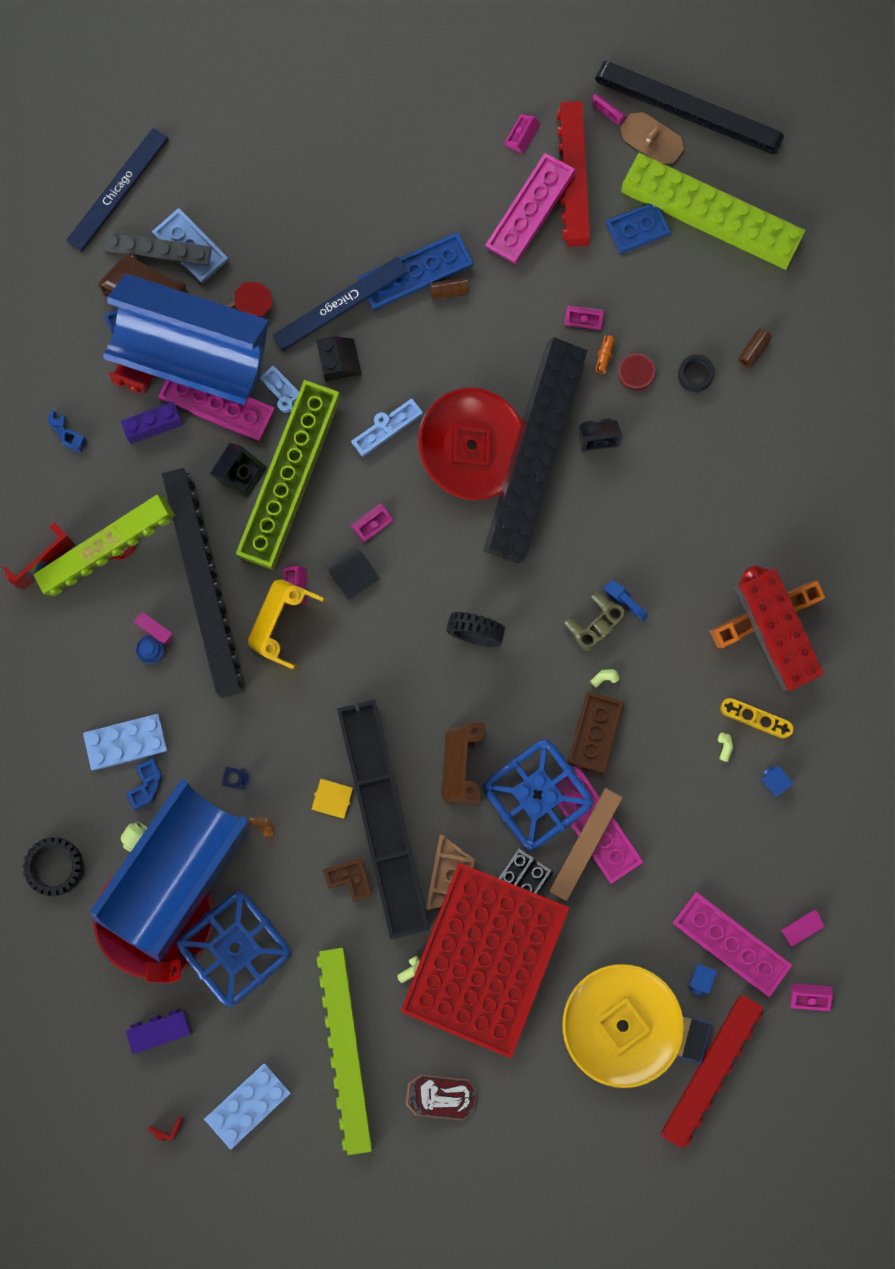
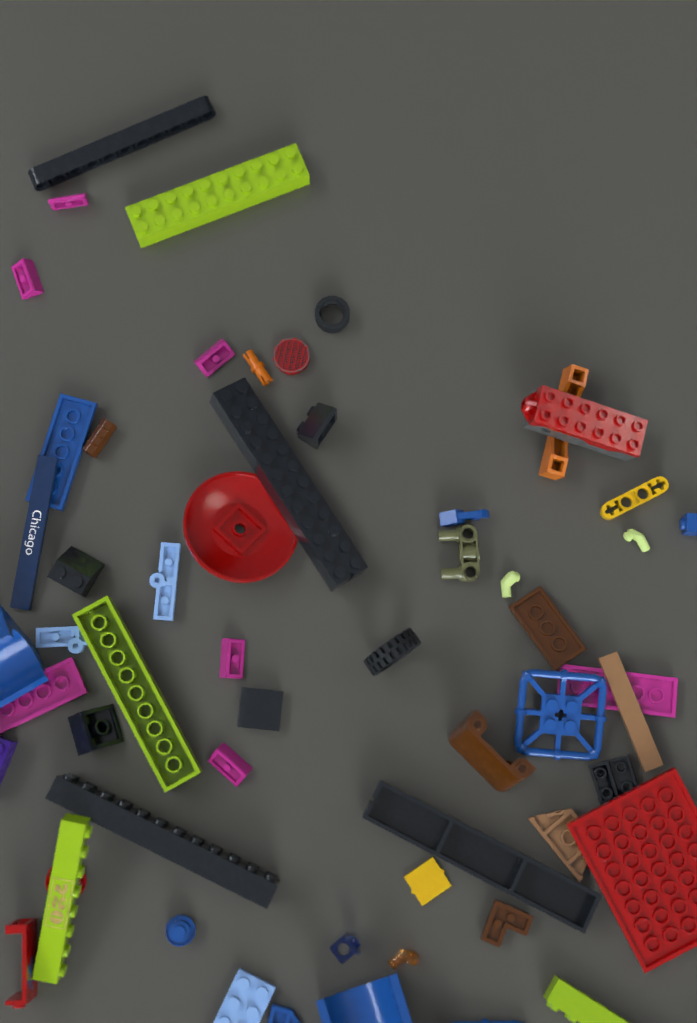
camera: 55 degrees left, 0 degrees up
(154, 628) = (166, 913): dark pink slope -> none
(260, 636) = (229, 784): yellow windscreen -> none
(410, 972) = (619, 938): yellowish green arm -> none
(530, 208) = (93, 323): dark pink plate -> none
(573, 154) = (96, 268): red brick -> none
(638, 227) = (180, 259): blue tile -> none
(652, 138) = (120, 189): medium nougat shield -> none
(754, 348) = (350, 256): reddish brown axle -> none

